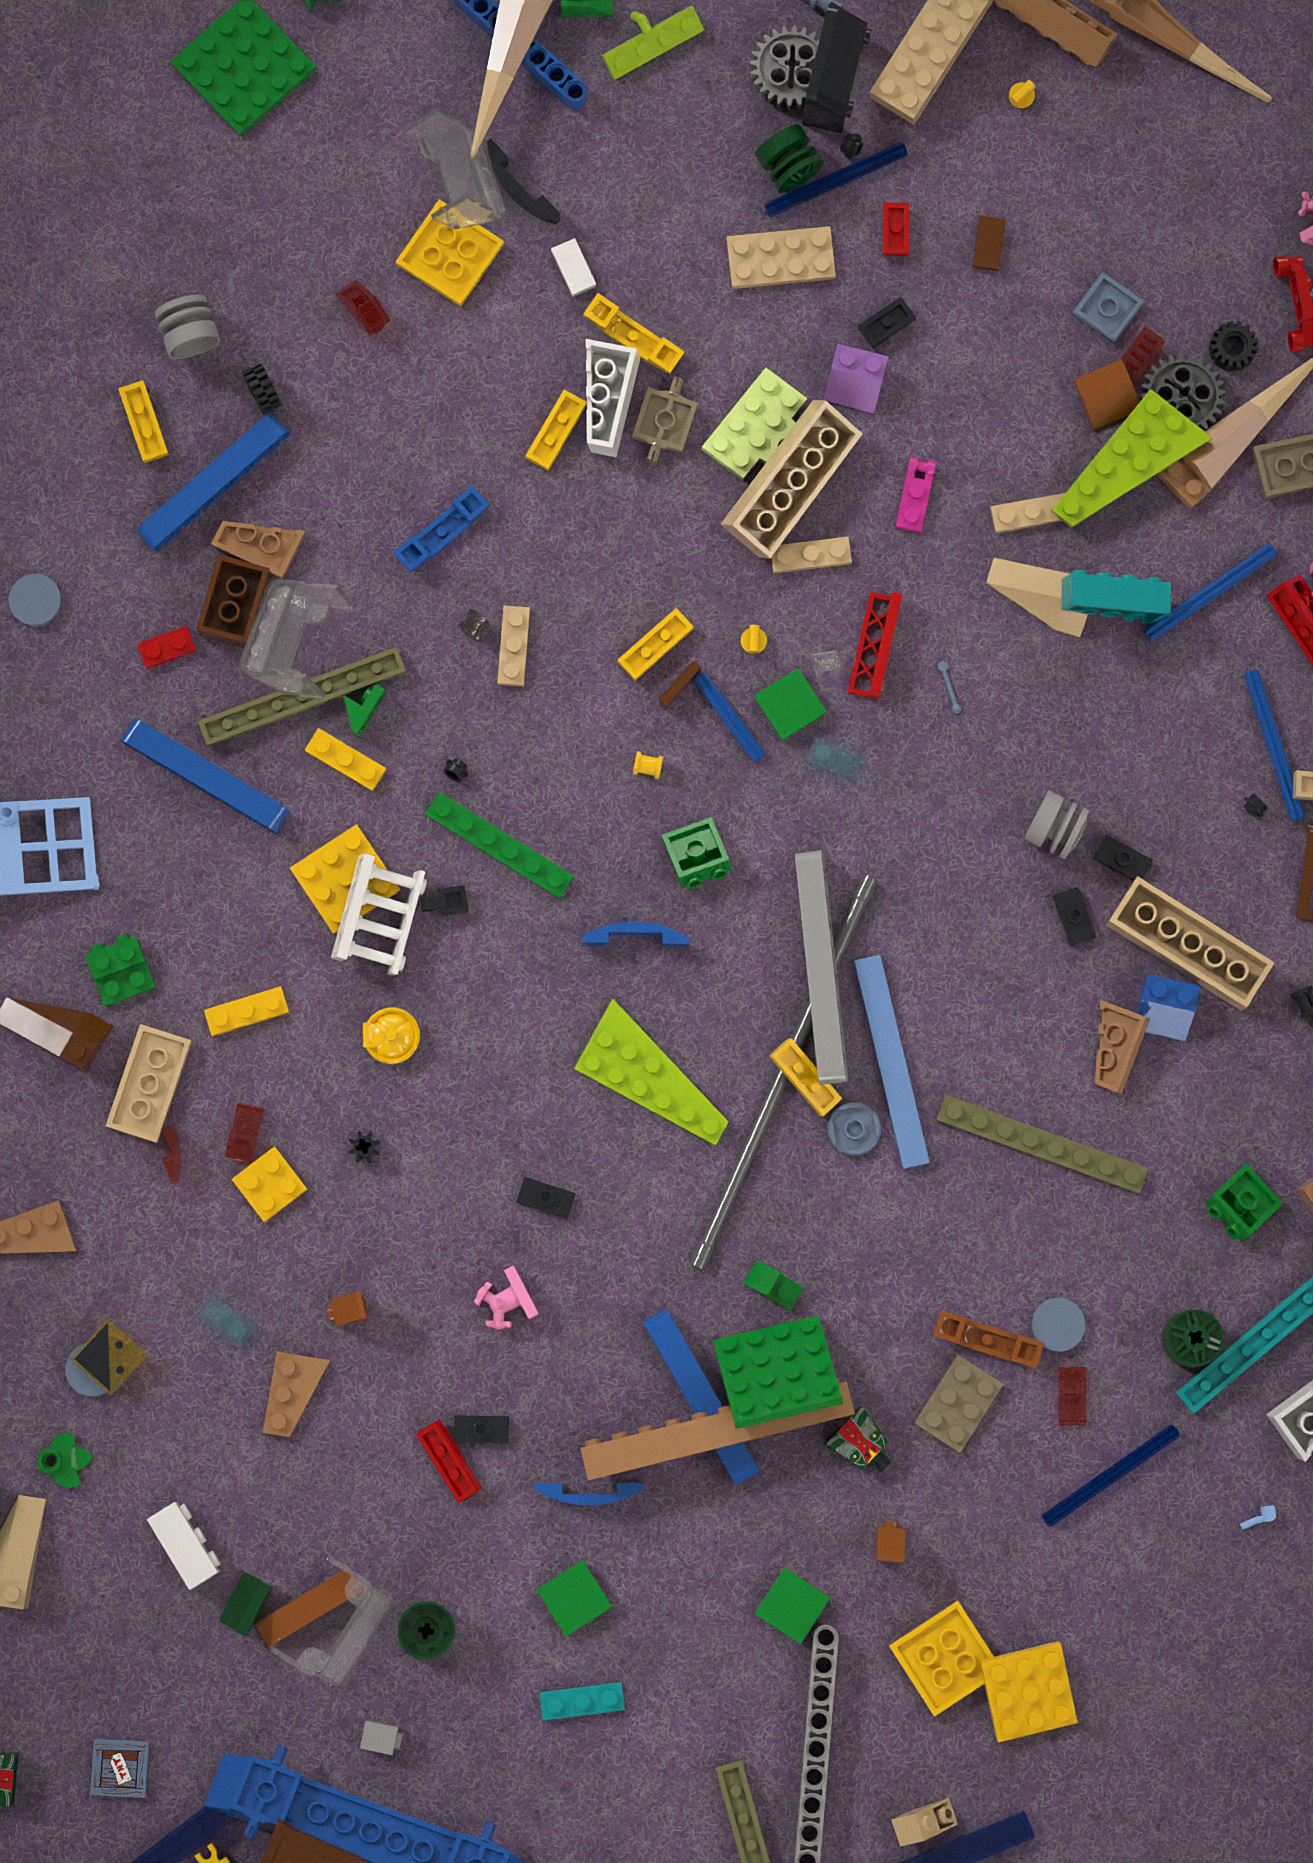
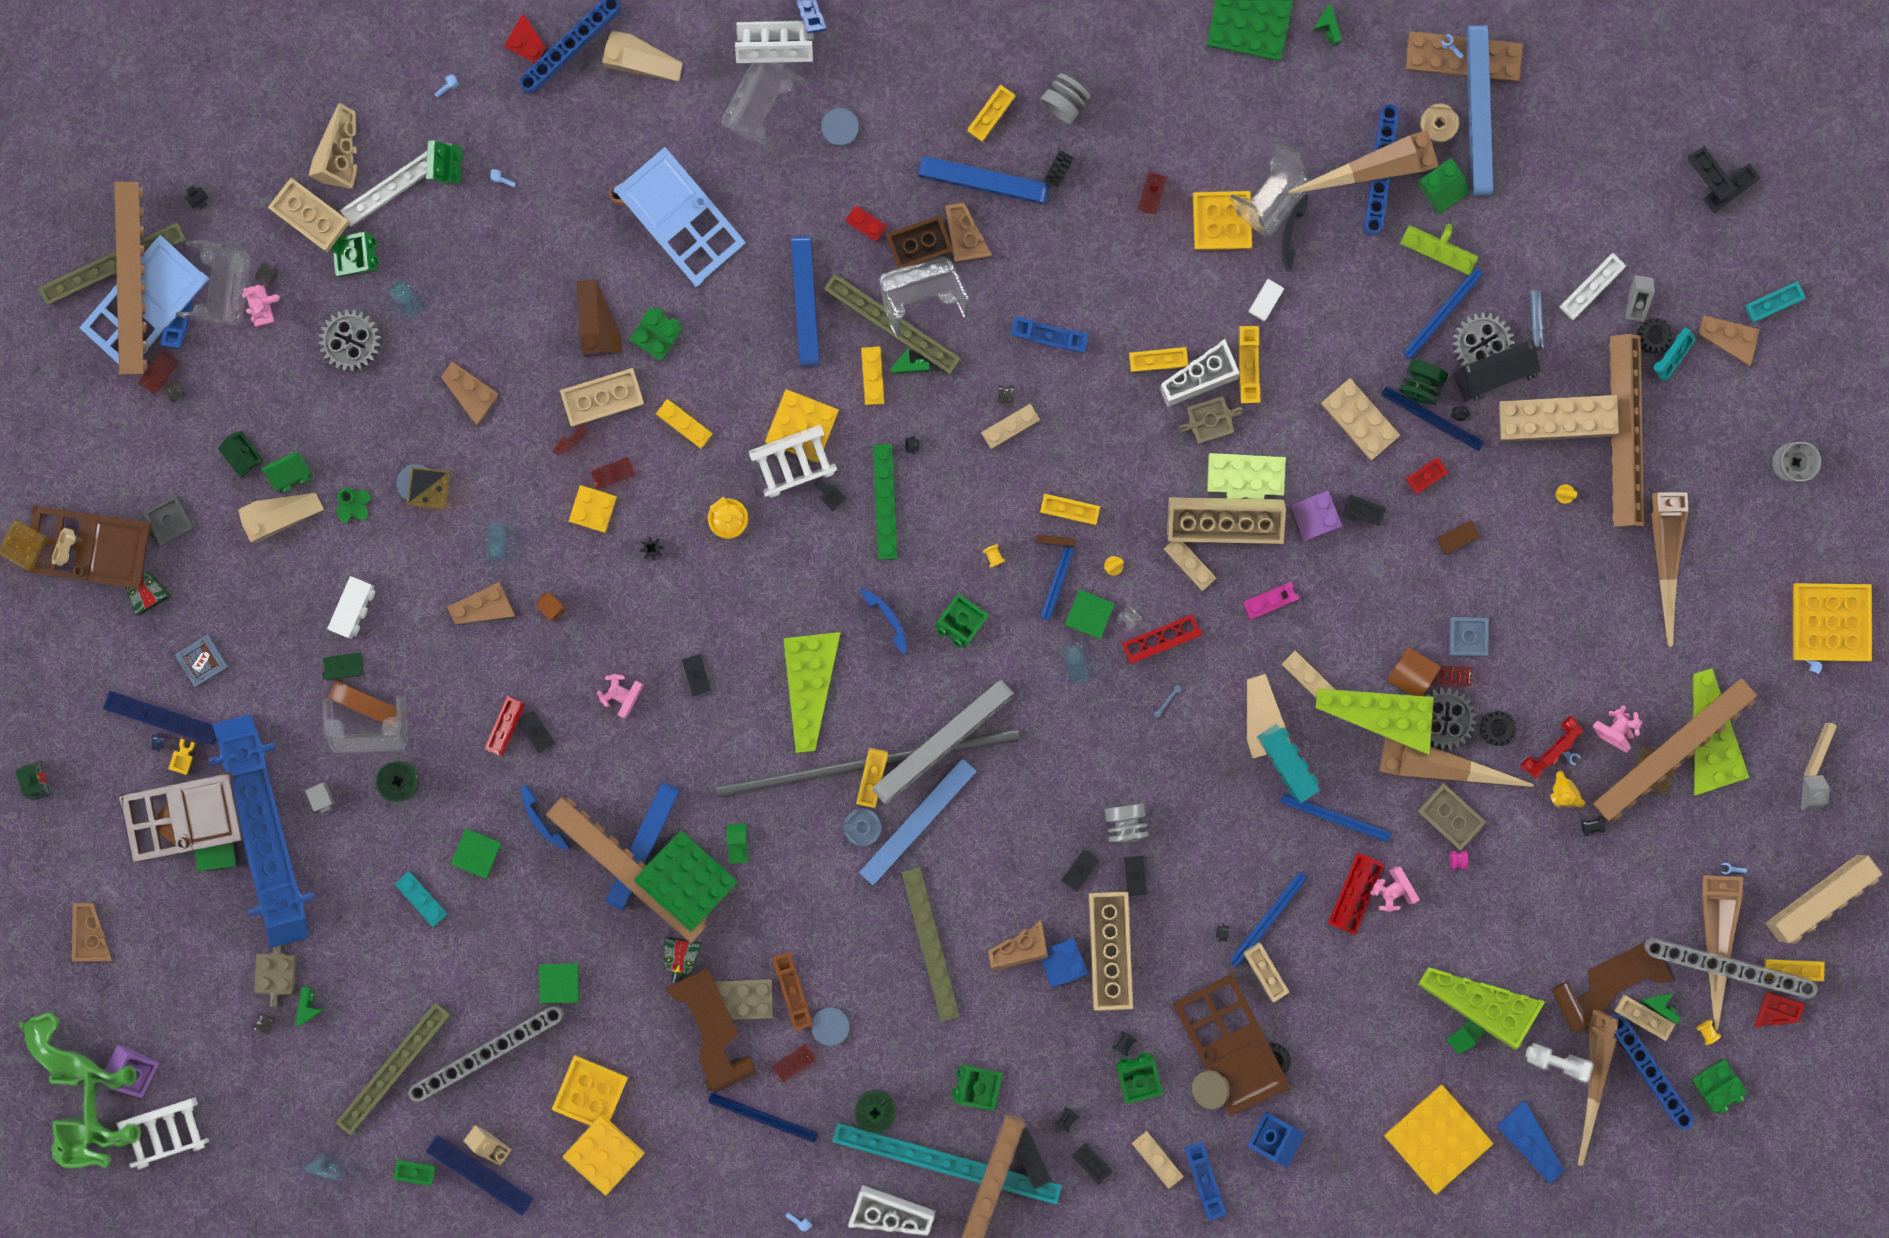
camera: 55 degrees right, 5 degrees up
(727, 87) = (1443, 313): none -> blue axle
(889, 1542) = (632, 1015): dark orange slope -> none
(970, 1456) = (716, 1030): none -> reddish brown door

